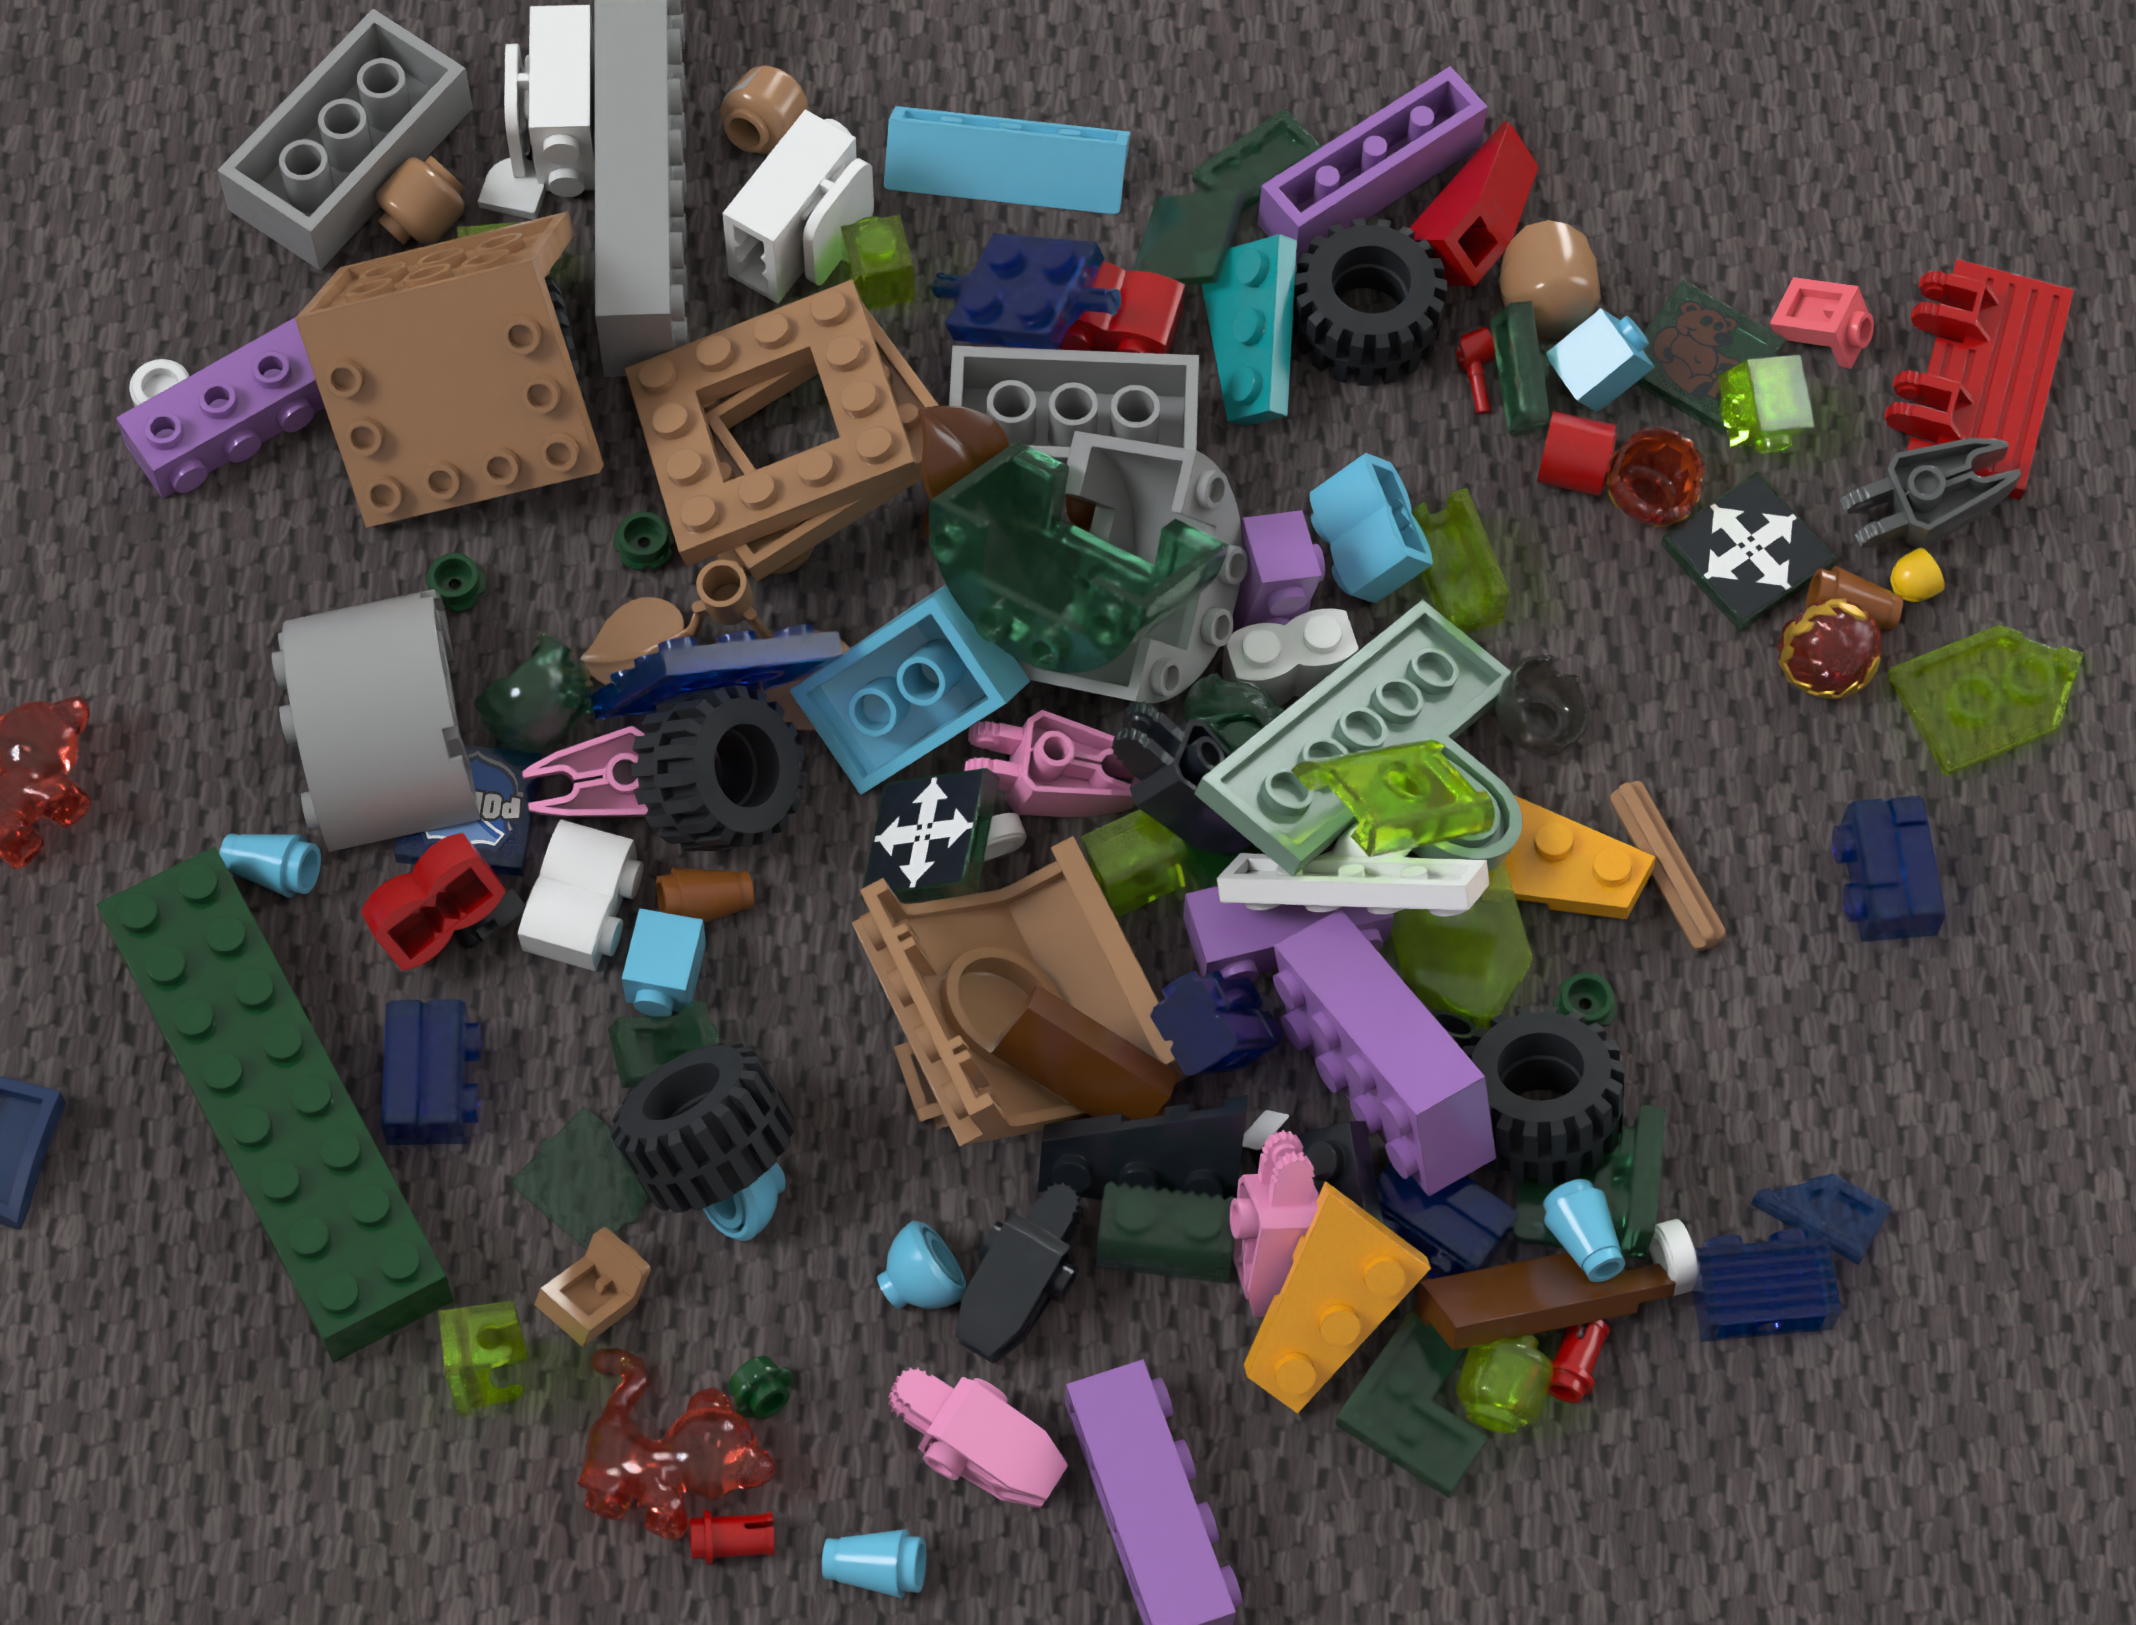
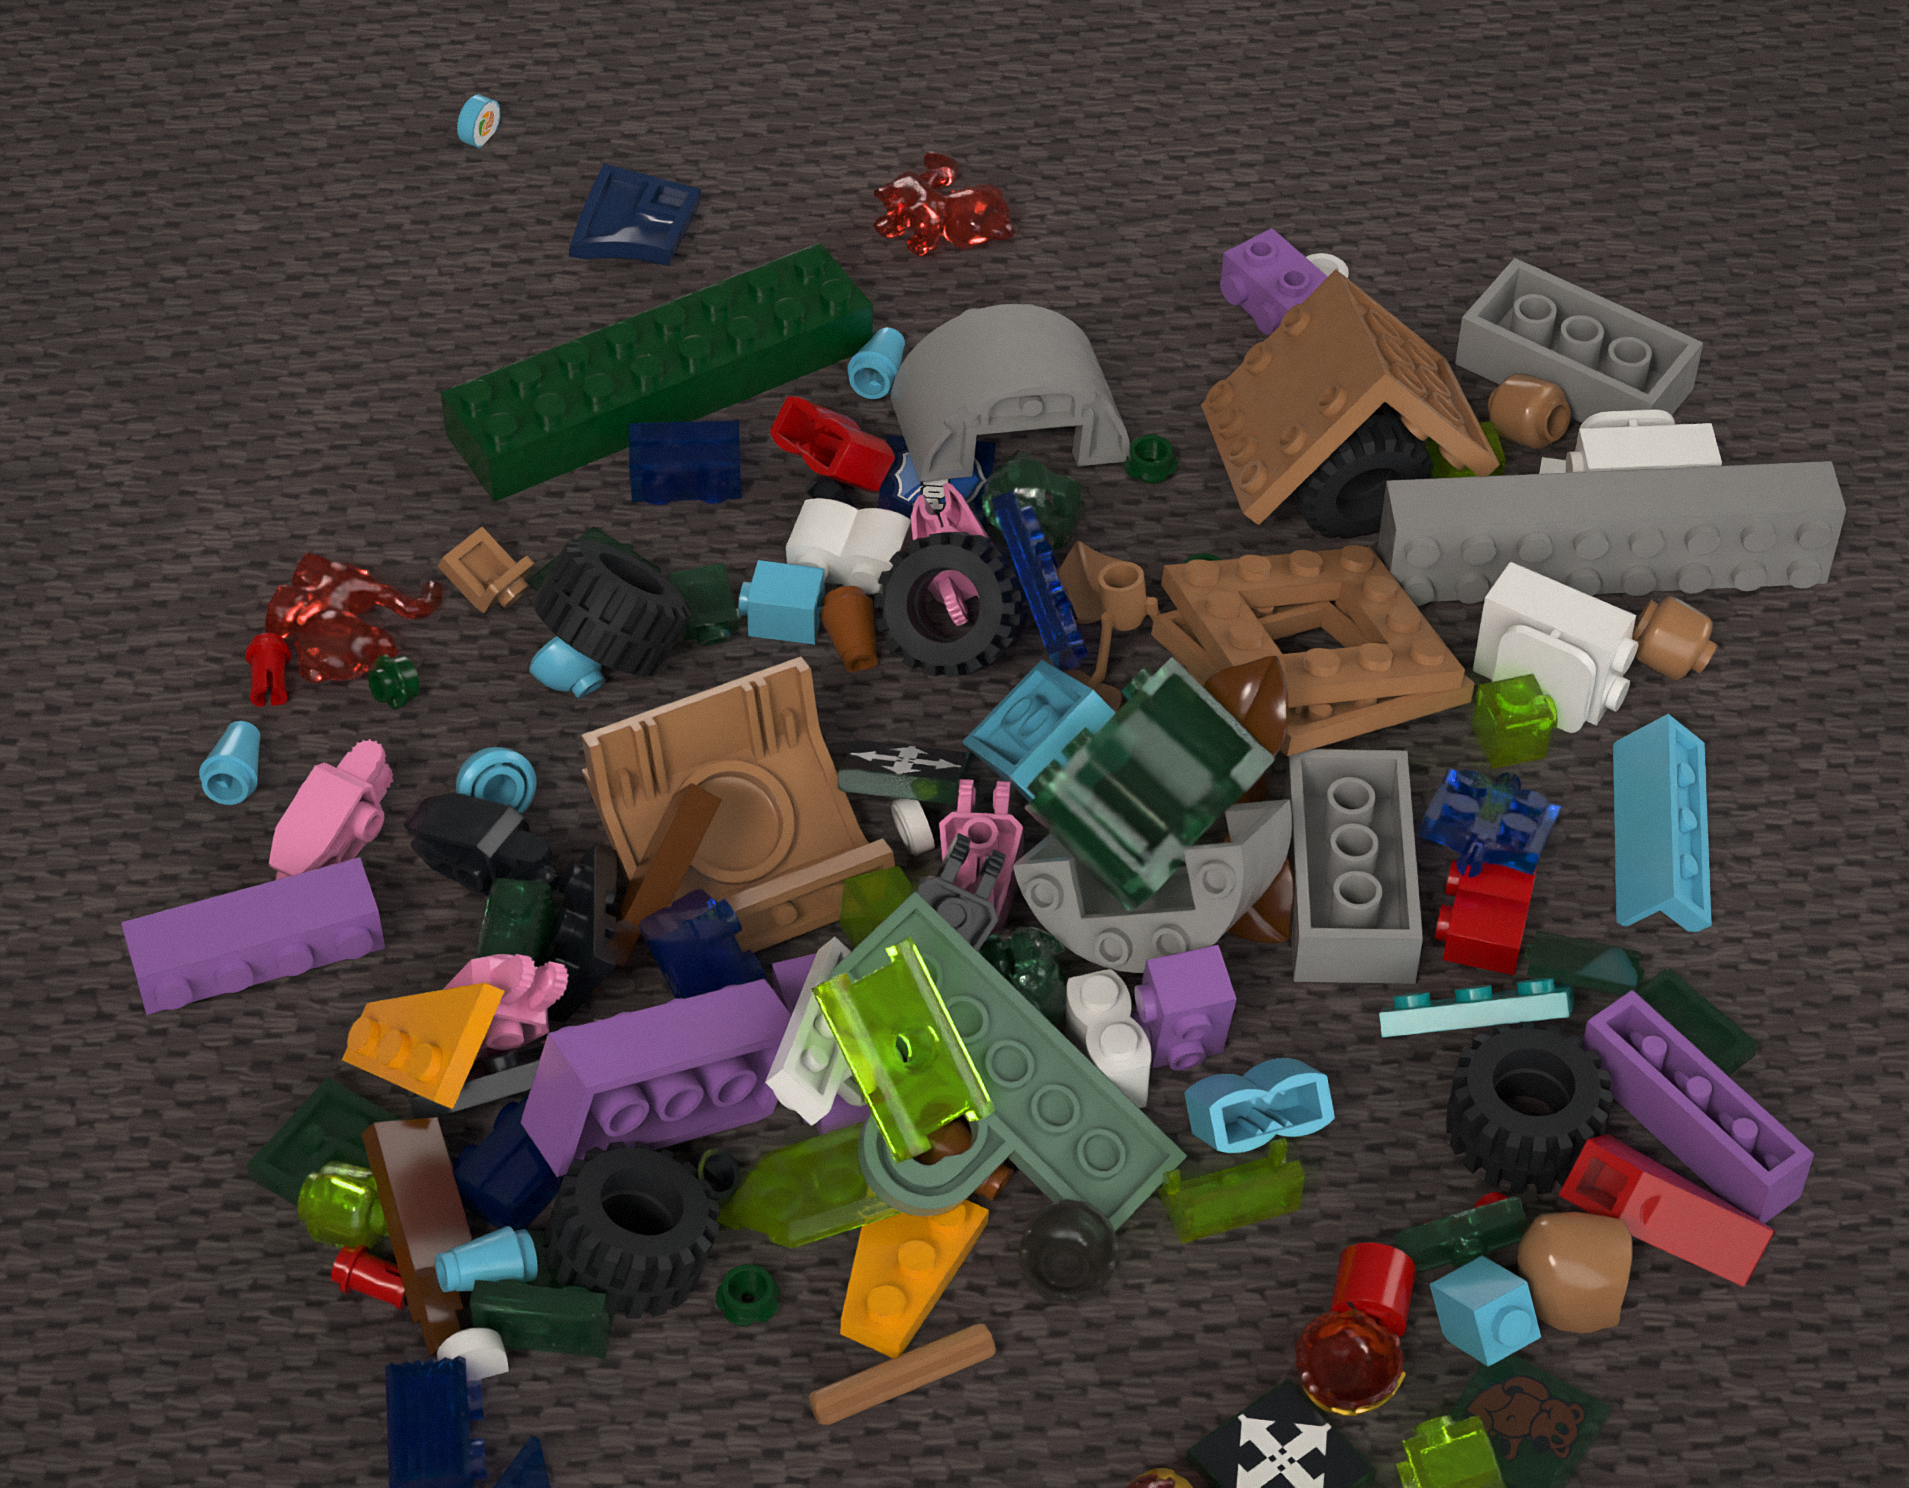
camera: 90 degrees right, 15 degrees down
(473, 1345) = (419, 485): clear neon green hinge -> none

